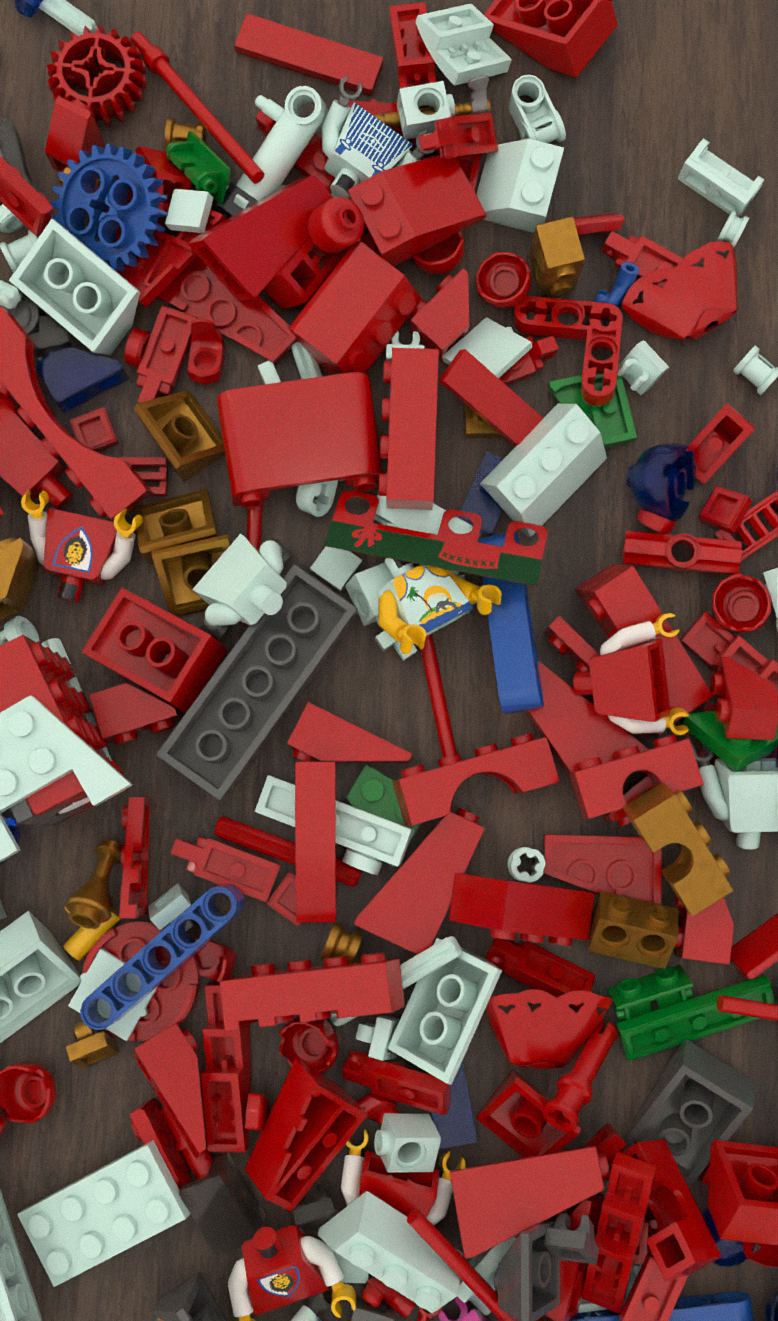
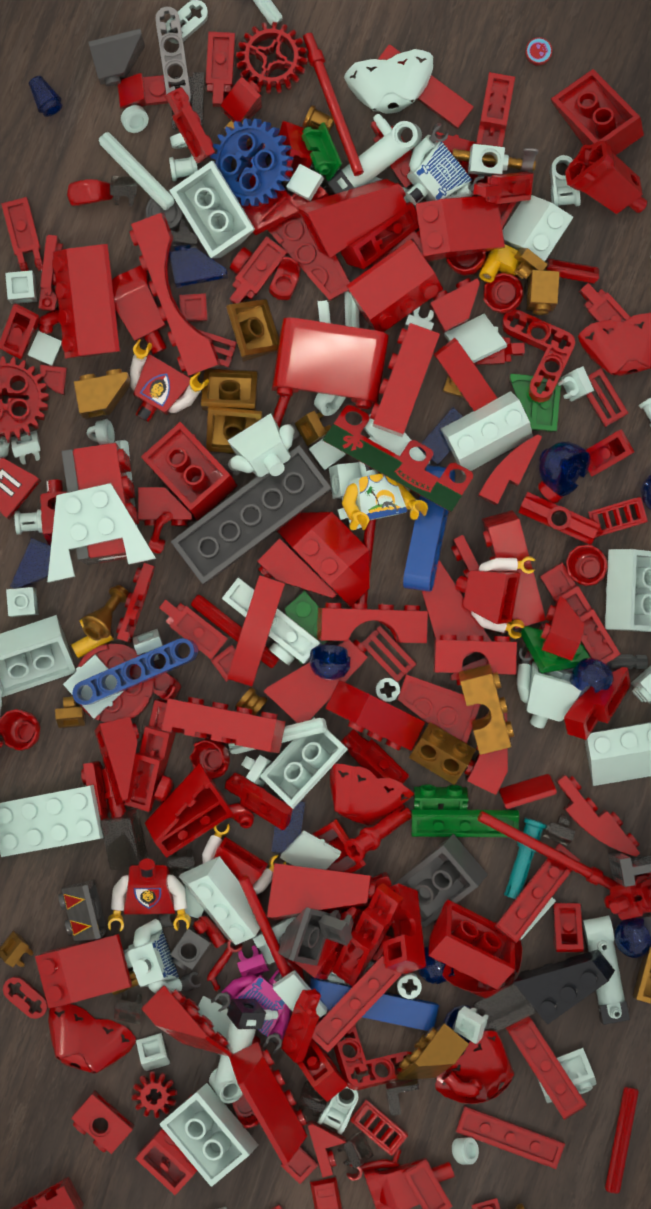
camera: 15 degrees right, 5 degrees up
(30, 105) = (220, 64): none -> red hinge
(138, 766) = (157, 545): none -> red piece
(262, 56) = (390, 80): none -> light aqua piece
(304, 538) = (311, 427): none -> pearl gold tile
(336, 225) = (400, 225): red head -> none
(386, 699) = (331, 552): none -> red wedge
(407, 1142) = (260, 846): light aqua brick -> none
(434, 852) = (329, 661): none -> clear blue hair
(462, 43) = (530, 116): light aqua slope -> none
(484, 239) = (499, 260): none -> yellow piece
(495, 1136) = (310, 852): none -> light aqua piece
(522, 222) = (529, 262): none -> pearl gold tile
(539, 830) = (404, 670): none -> red tile
(589, 83) = (605, 178): none -> red piece
(591, 512) = (509, 470): none -> red slope
(625, 279) = (585, 320): blue arm -> none
(694, 369) = (614, 417): none -> red tile
(708, 1288) = (414, 992): none -> light aqua bush
(725, 509) = (599, 498): red tile -> none

